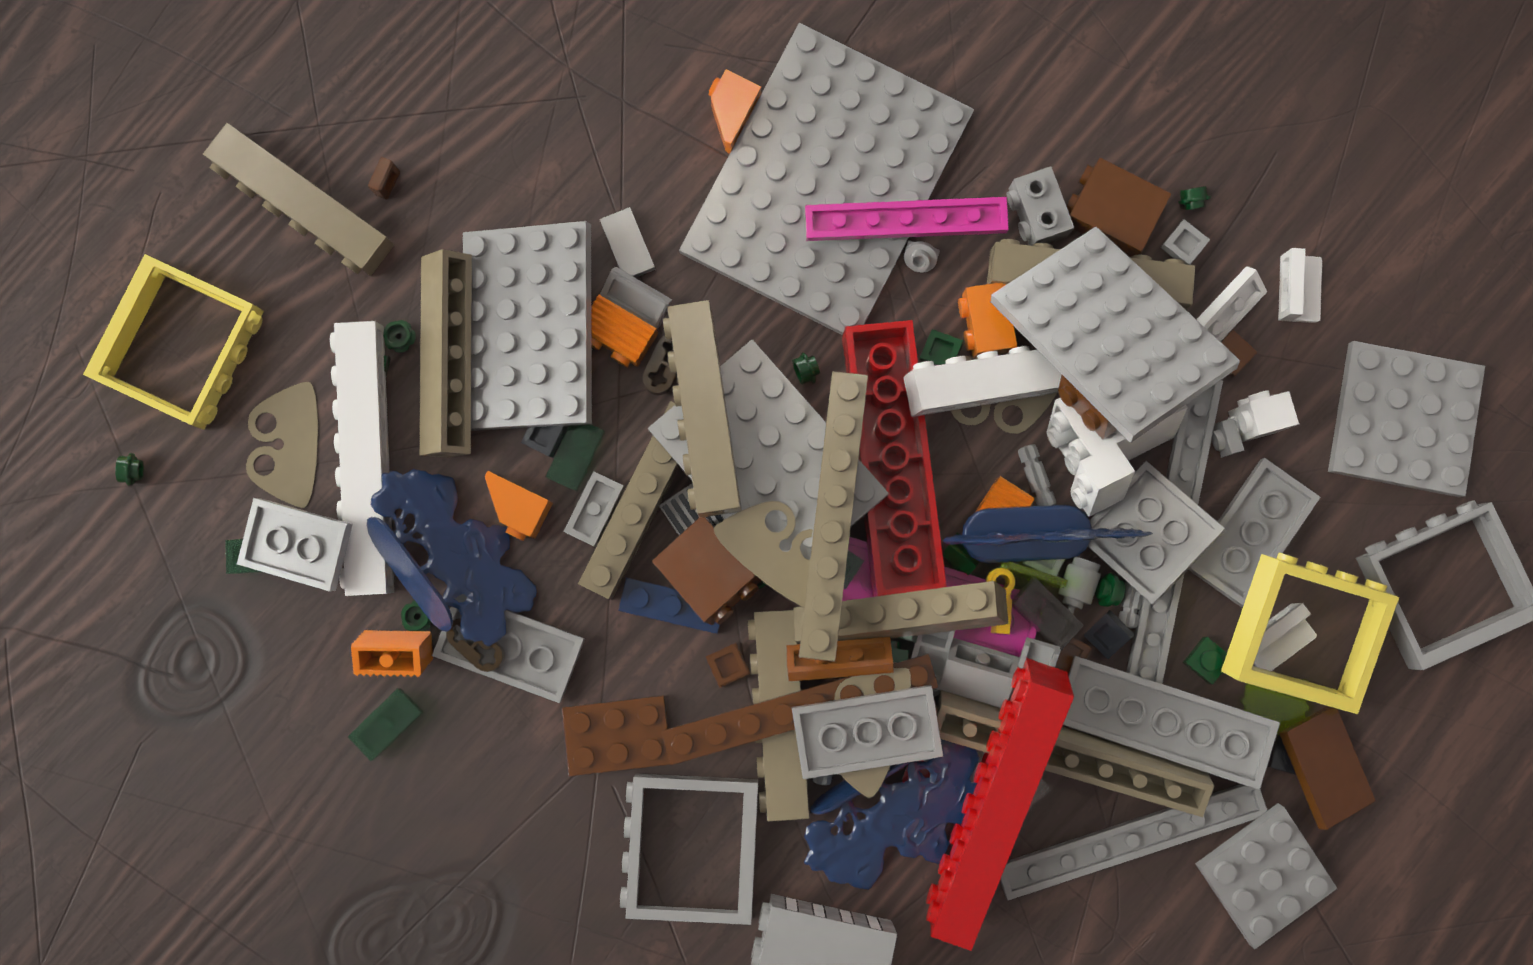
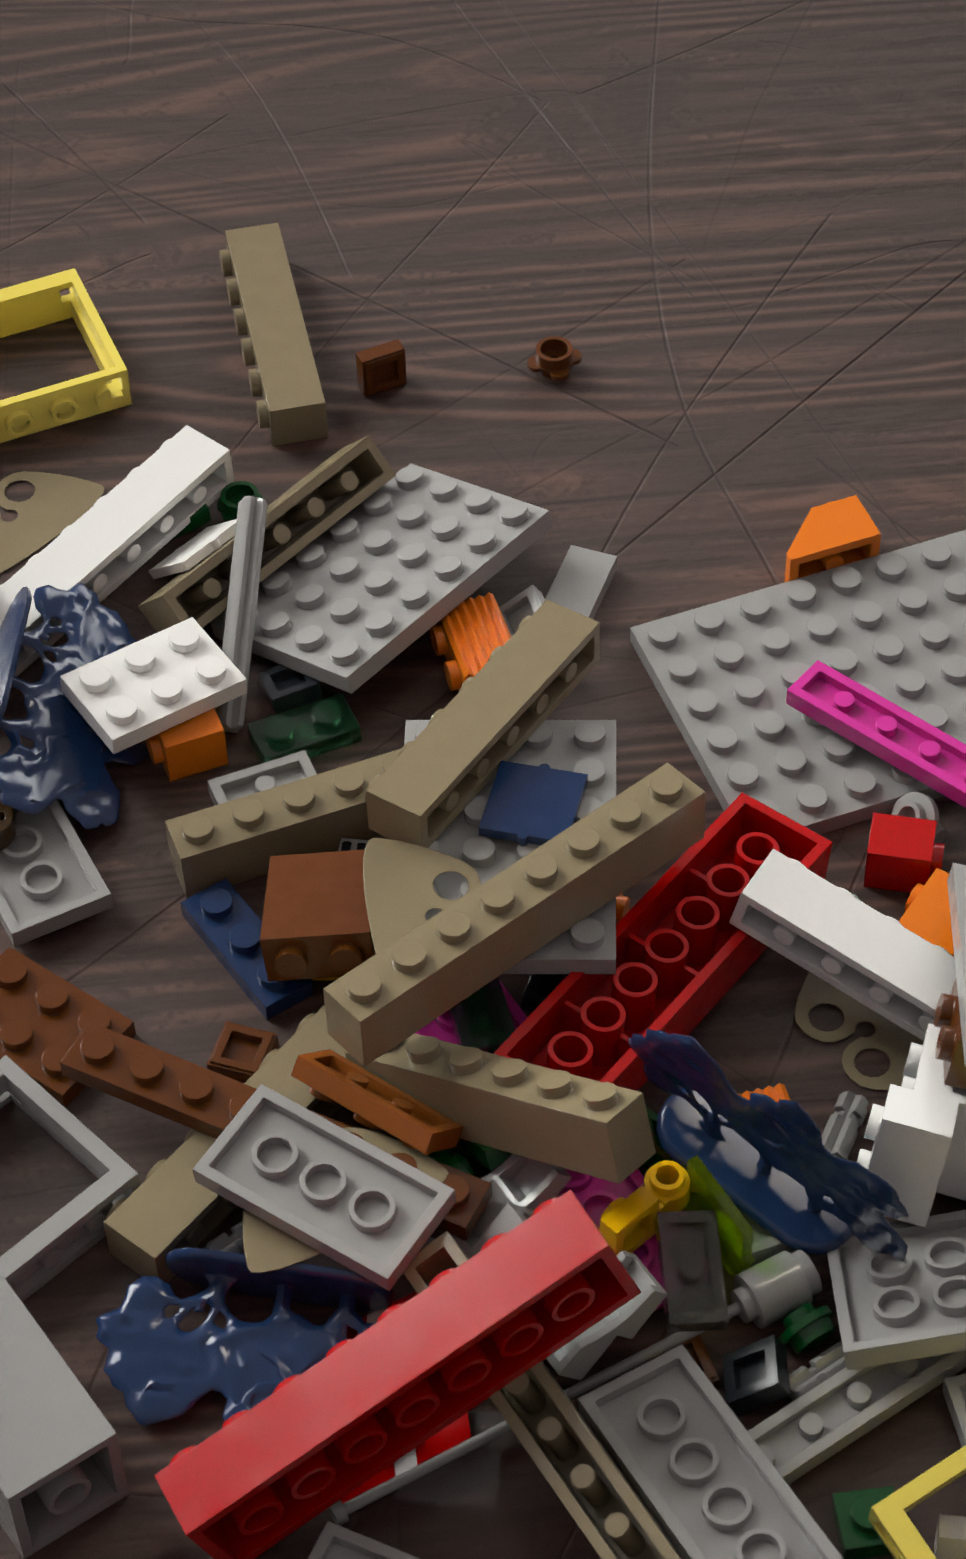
camera: 45 degrees right, 35 degrees down
(413, 391) = (195, 549): none -> white piece
(462, 83) = (554, 358): none -> reddish brown plate
(484, 419) = (243, 601): none -> light grey axle
(489, 507) = (153, 685): none -> white plate
(768, 435) = (532, 803): none -> dark blue piece
(934, 285) = (901, 852): none -> red brick

